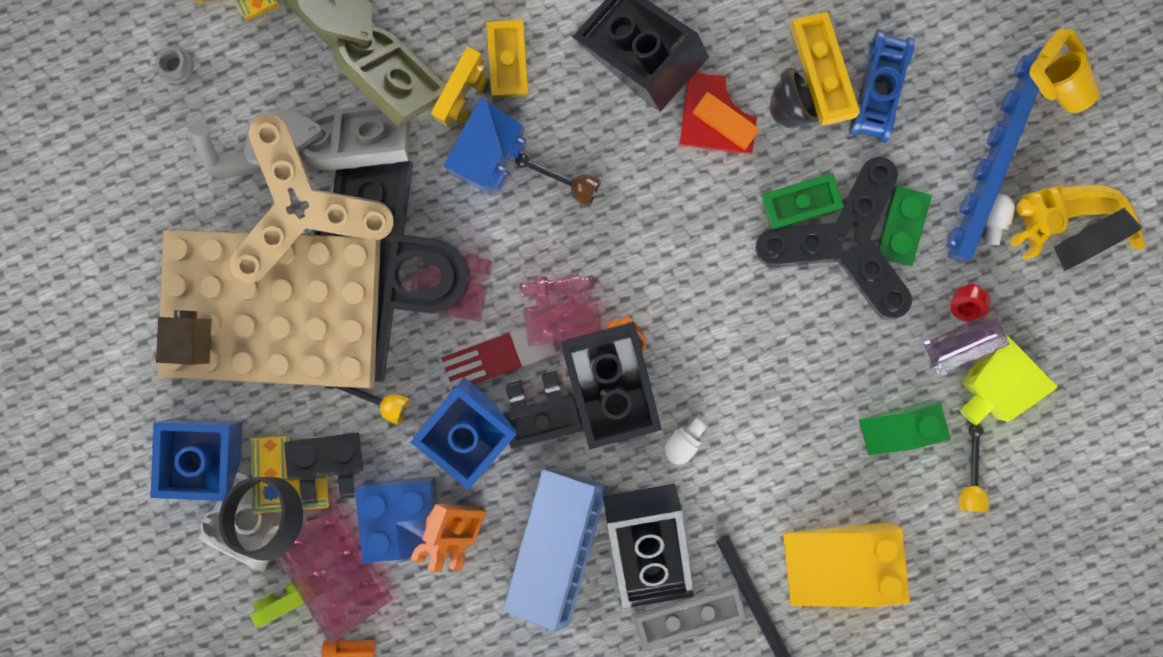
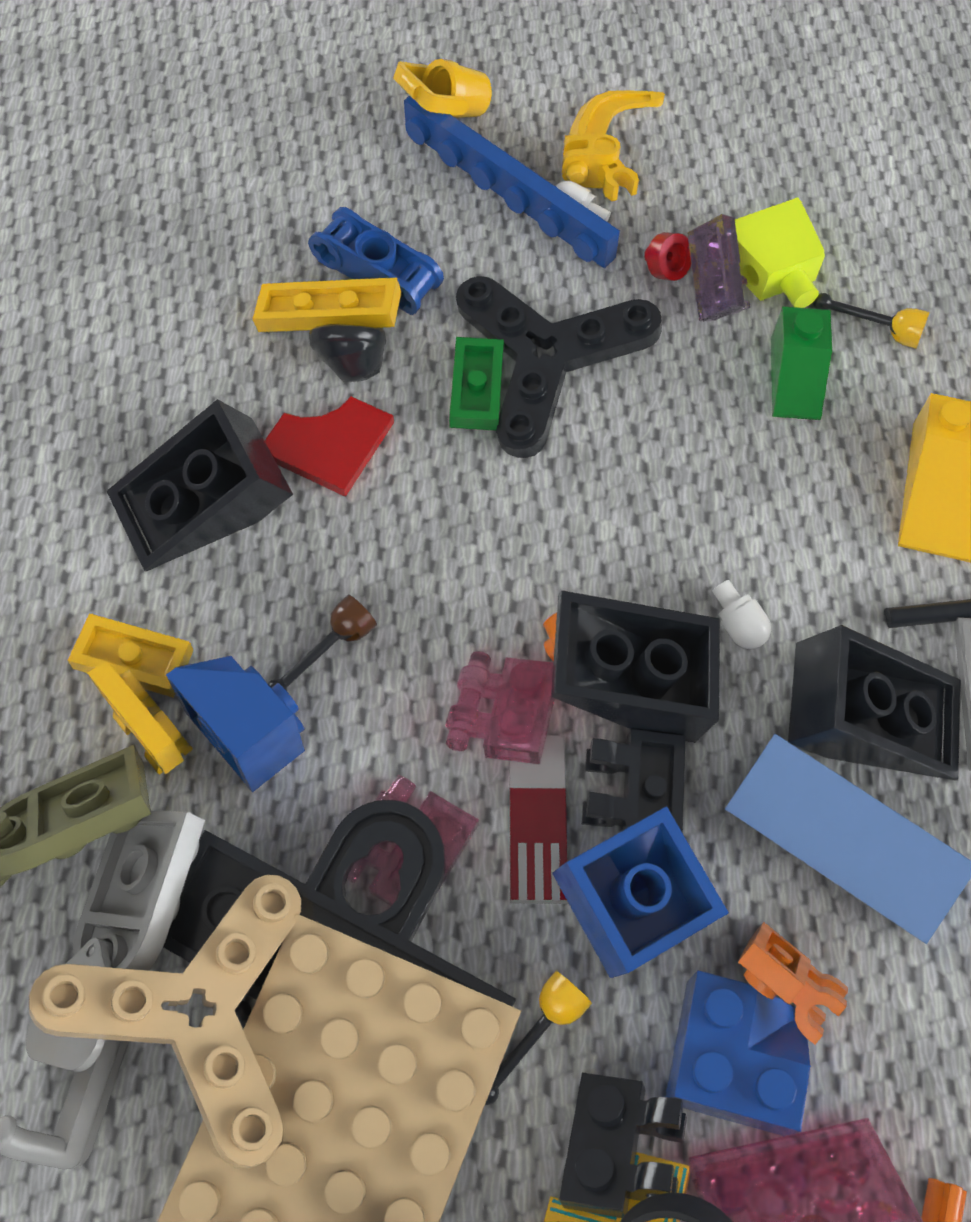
camera: 75 degrees left, 25 degrees down
(726, 121) = (339, 427): orange piece -> none
(904, 225) = (548, 291): green plate -> none
(1096, 238) = (640, 114): black tyre -> none

